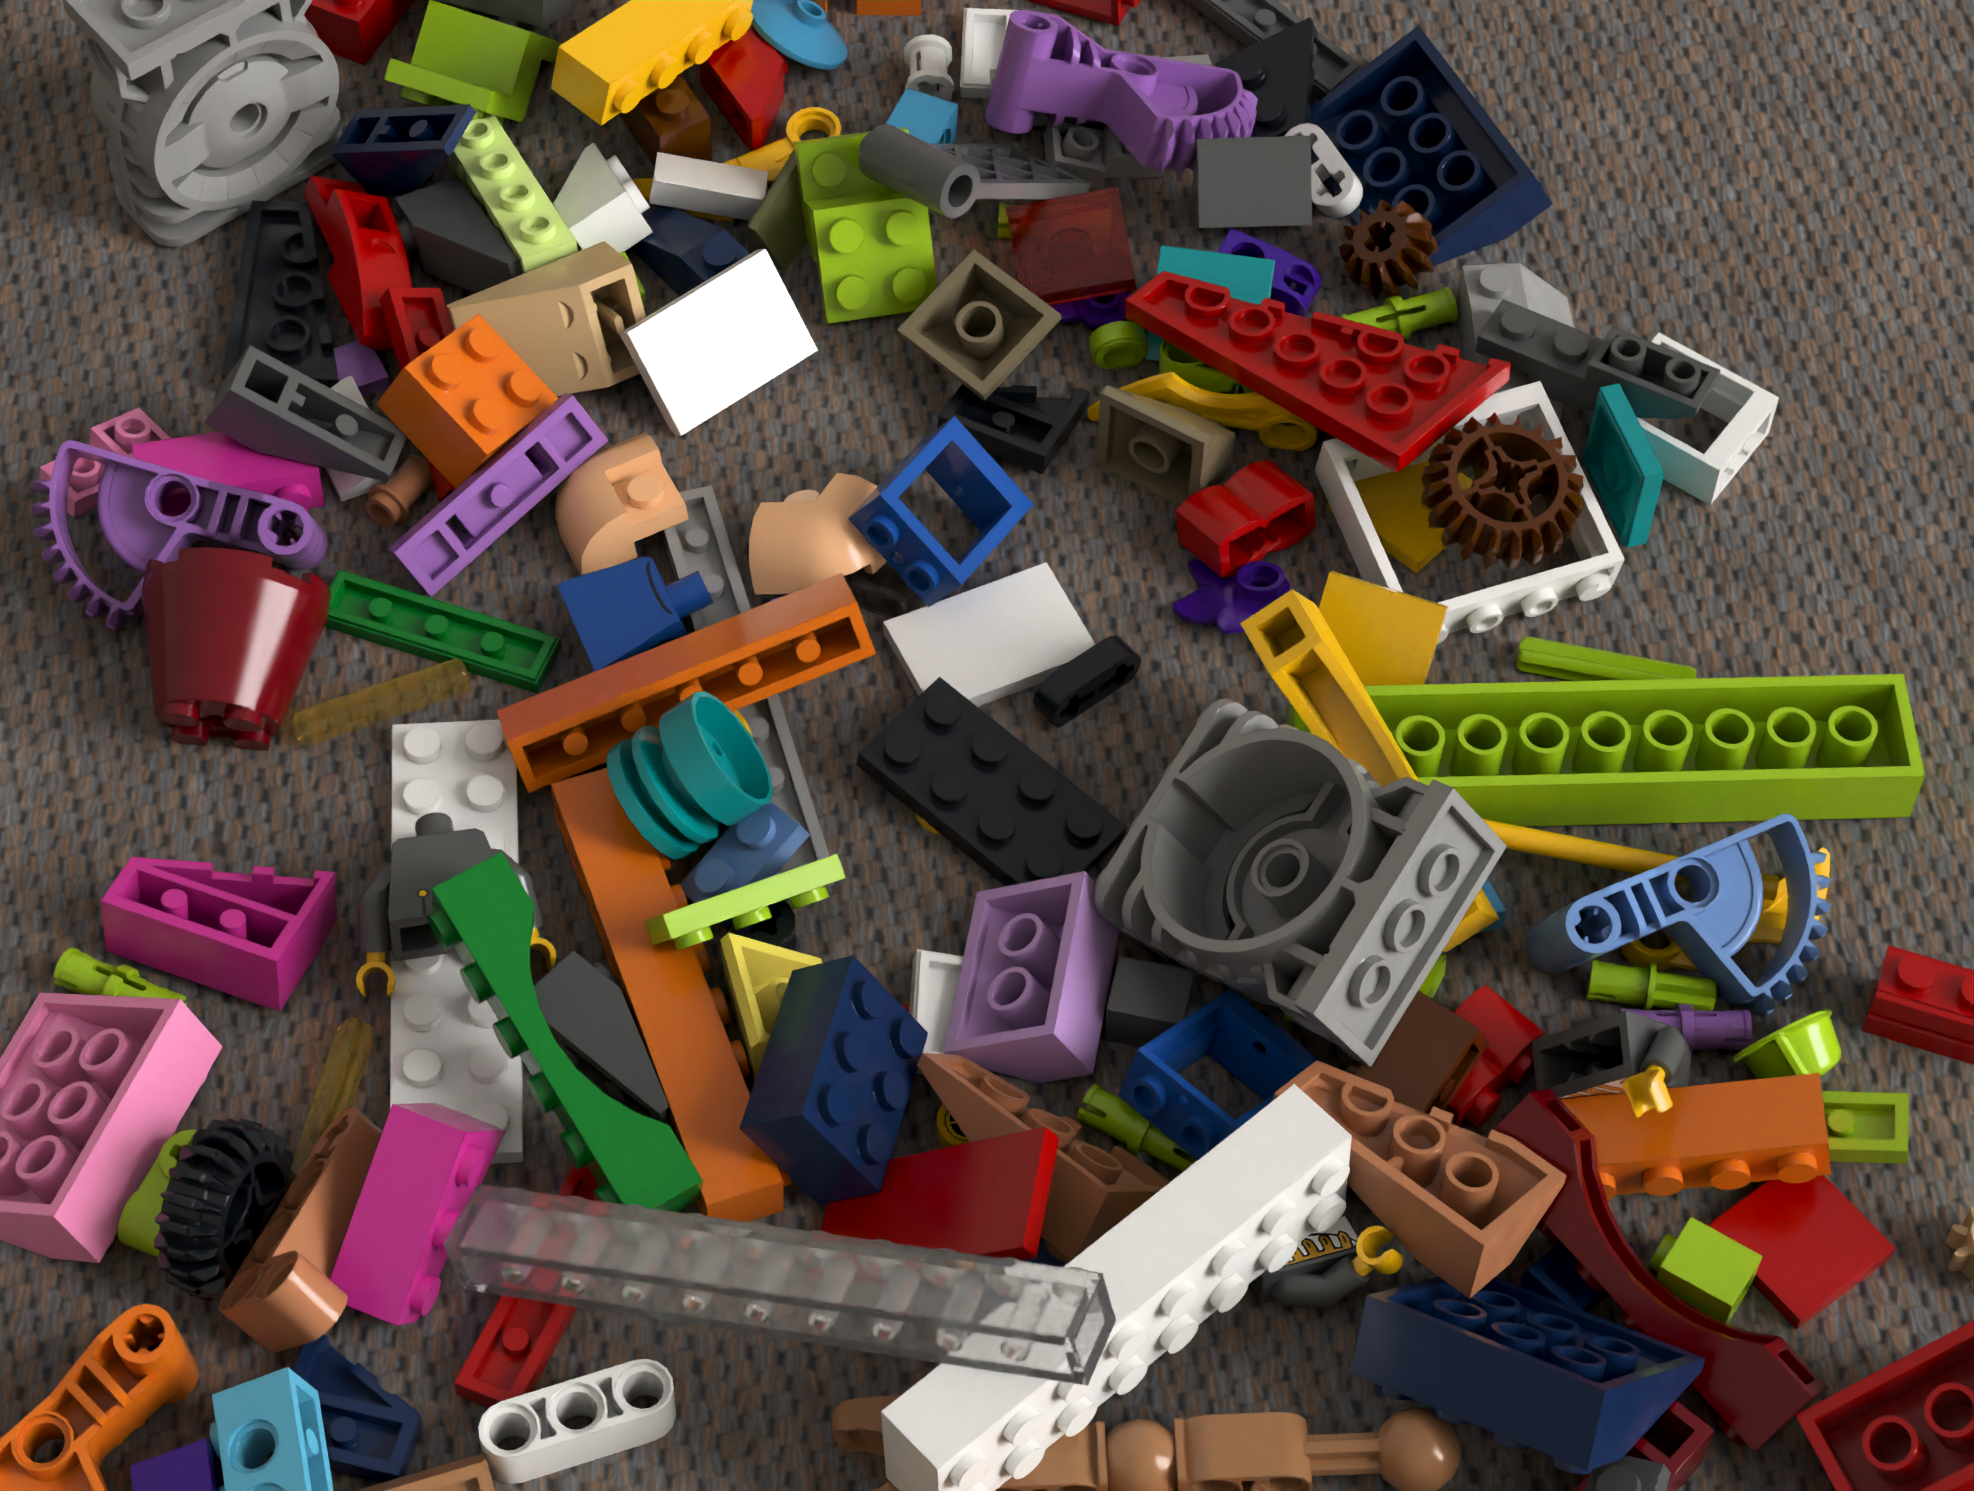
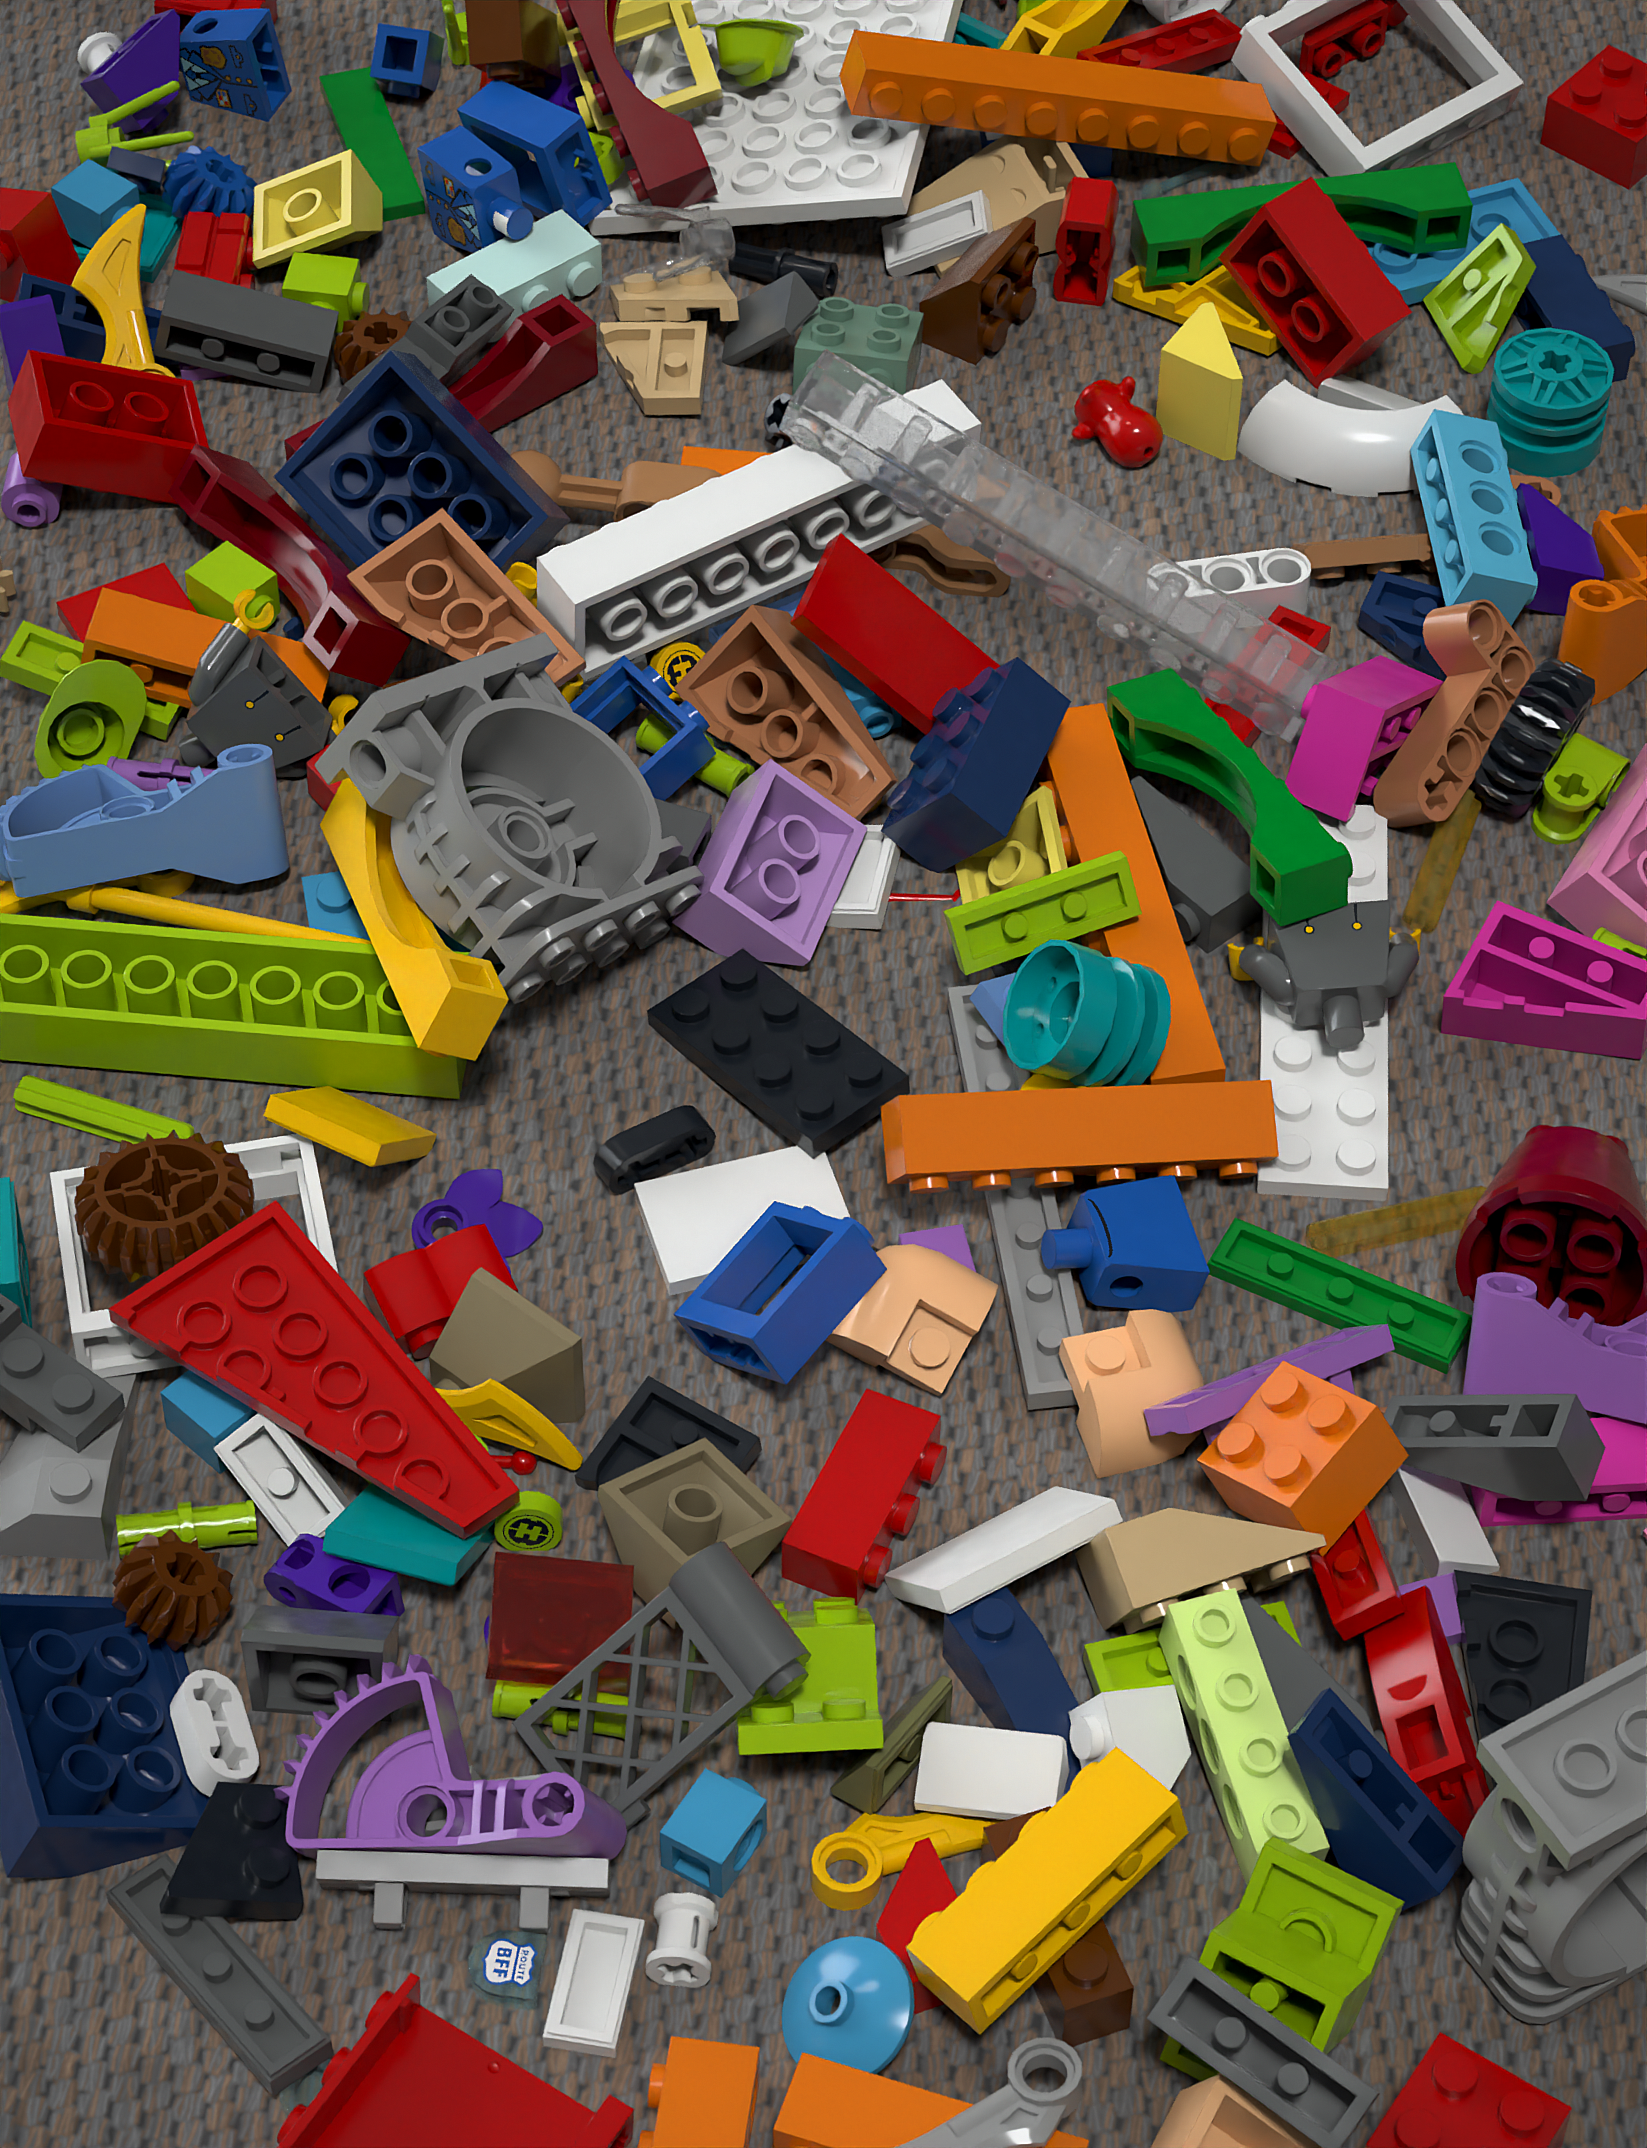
camera: 170 degrees left, 5 degrees down
(841, 390) = (863, 1497): none -> red brick

